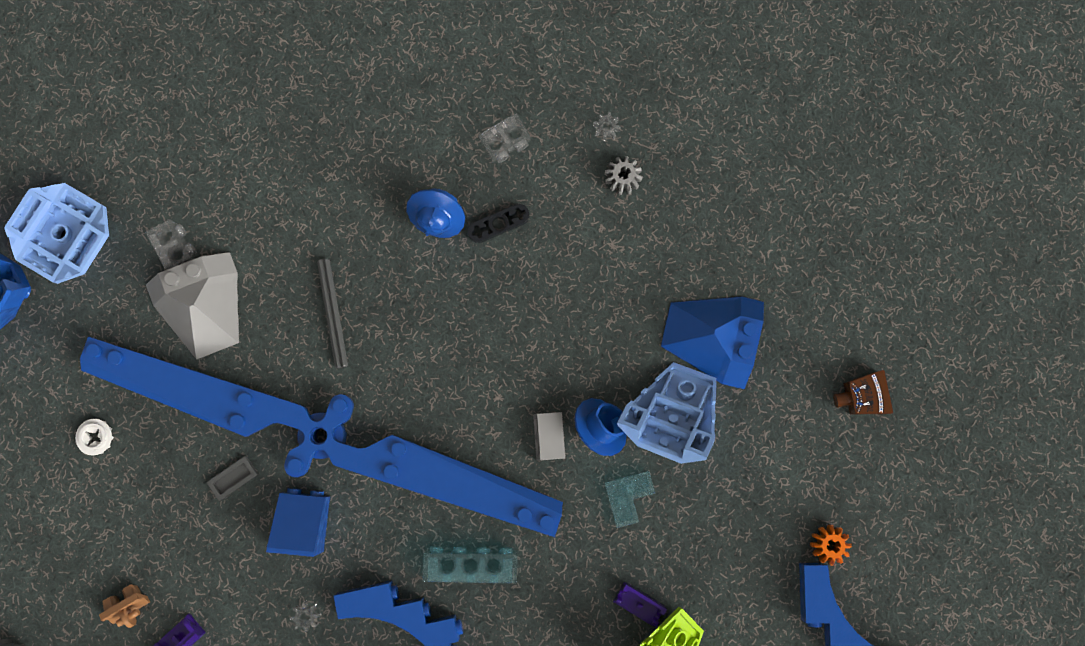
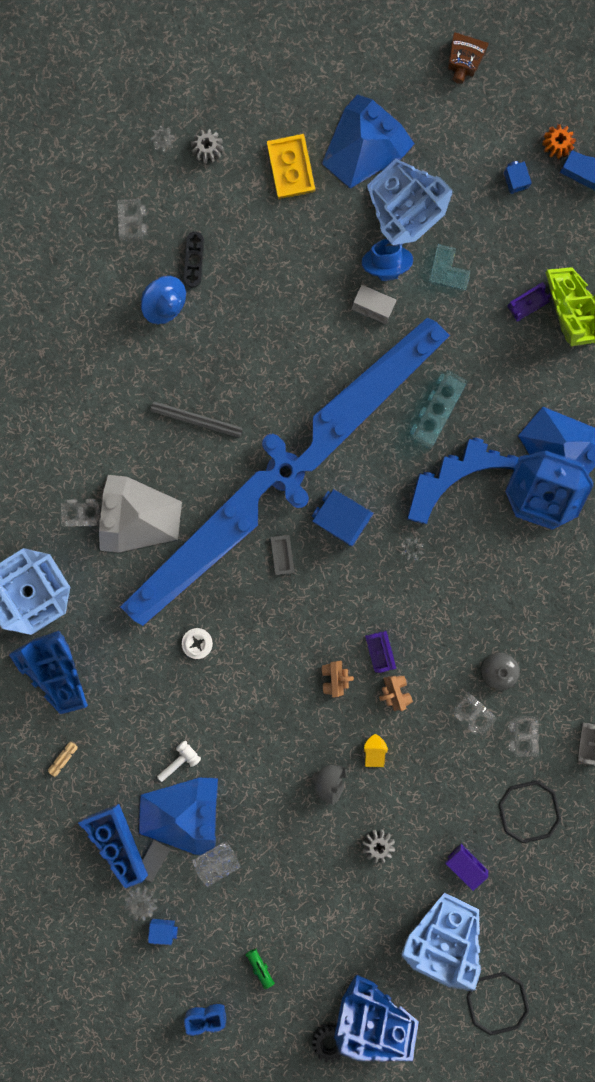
camera: 65 degrees left, 5 degrees up
(649, 272) = (291, 166): none -> yellow plate
(768, 519) = (517, 177): none -> blue brick

